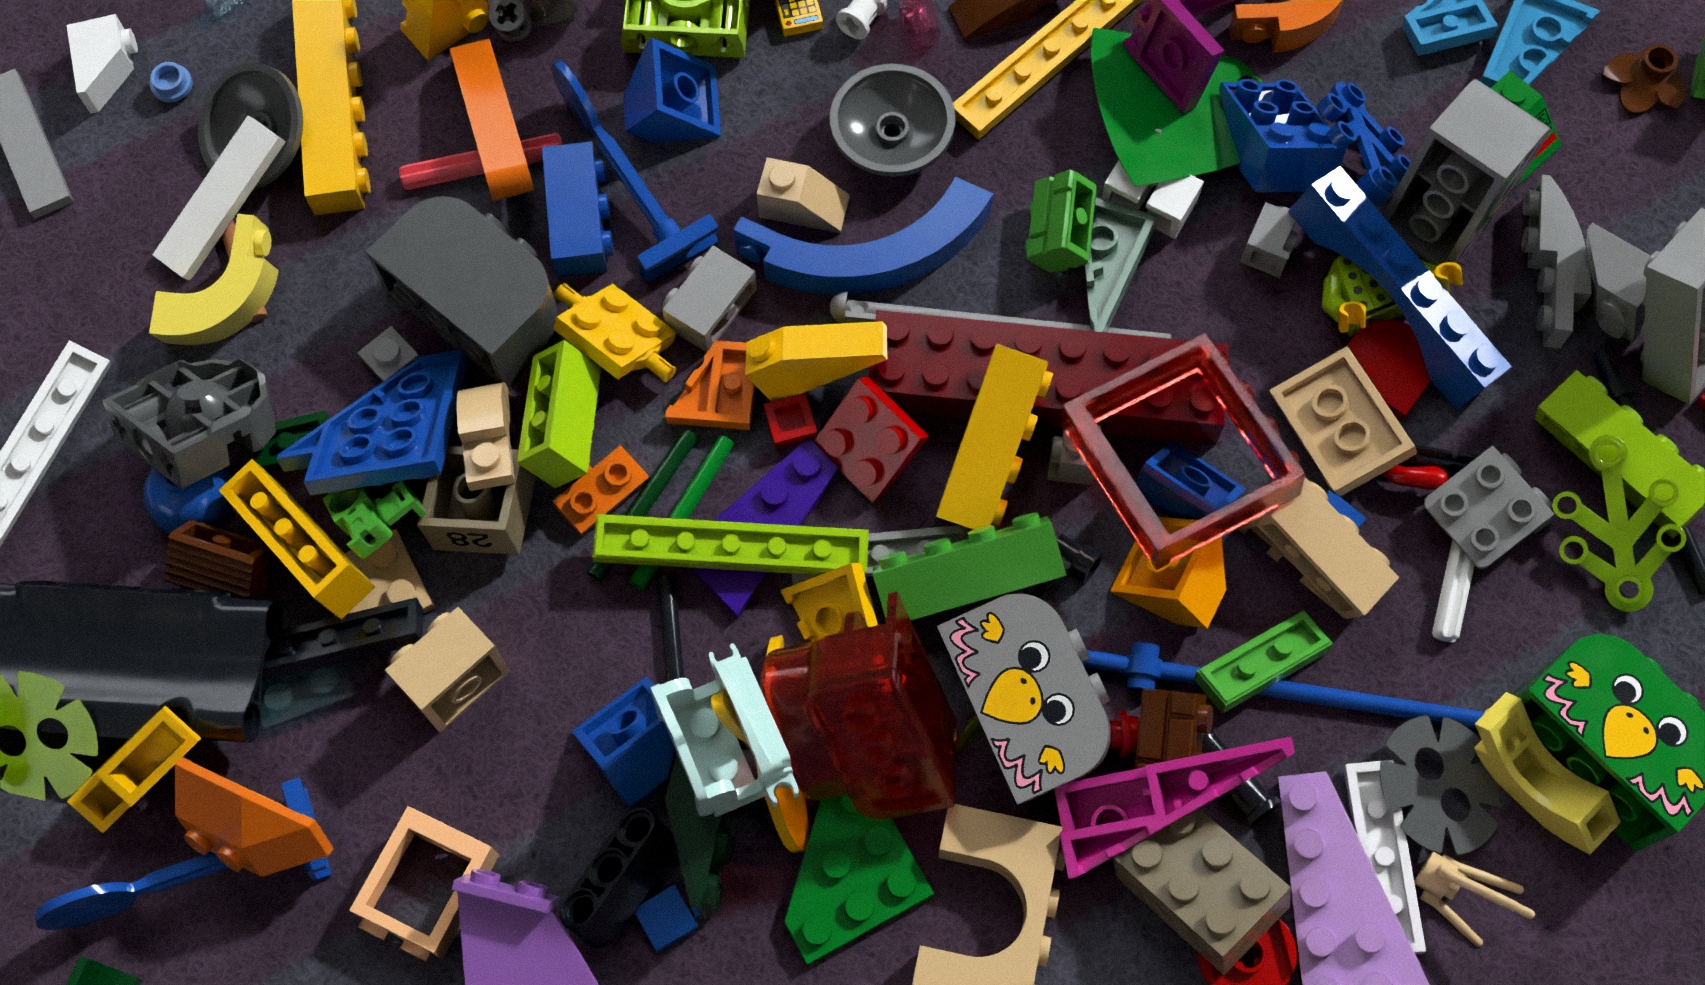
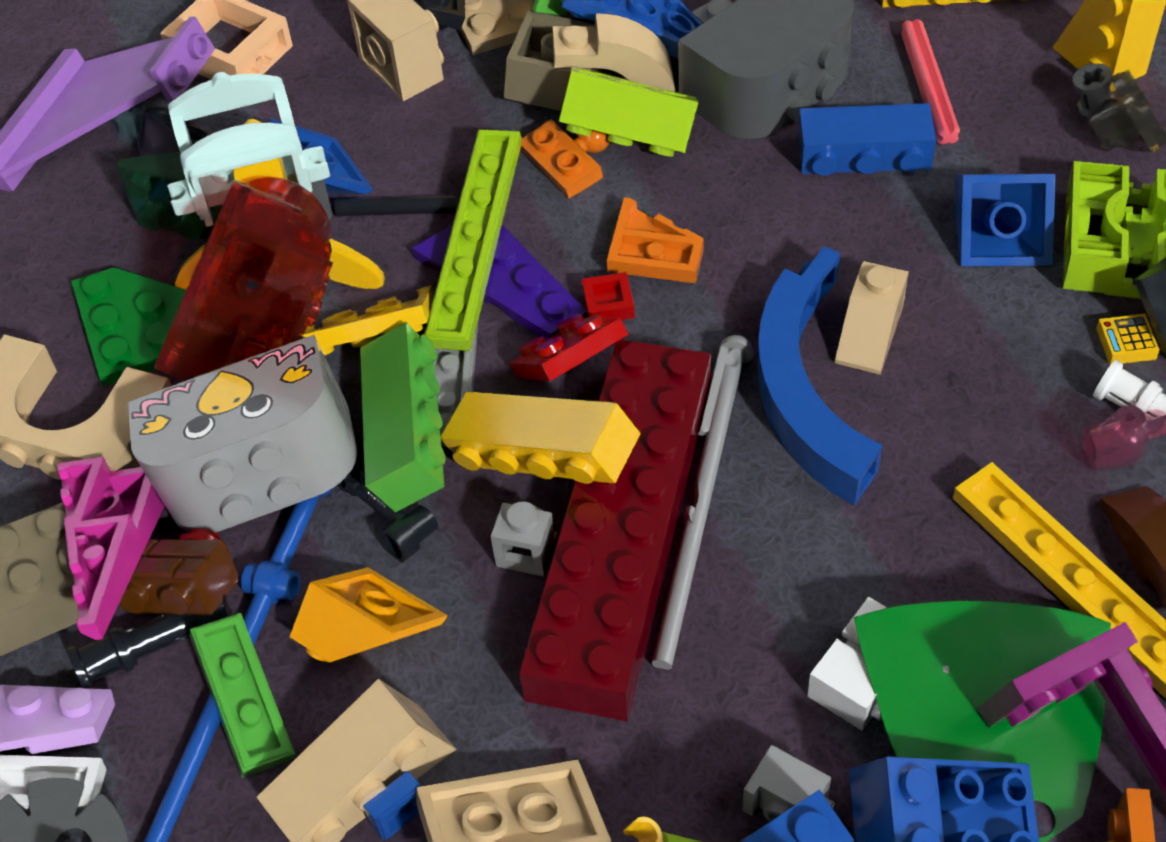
camera: 100 degrees right, 15 degrees down
(491, 120) = (966, 71): orange beam -> none
(615, 331) = (720, 162): yellow plate -> none
(653, 489) = (563, 201): dark green bar -> none
(674, 245) = (976, 138): blue piece -> none
(689, 500) = (548, 227): green bar -> none
(709, 298) = (753, 237): light grey brick -> none
(812, 355) = (663, 294): yellow slope -> none
(892, 100) = (967, 377): dark grey dish -> none
(1061, 222) = (820, 553): bright green brick -> none
(1115, 251) = (780, 610): sand green wing -> none
(1185, 484) = (463, 648): blue slope -> none
(1237, 400) = (456, 520): clear red window -> none

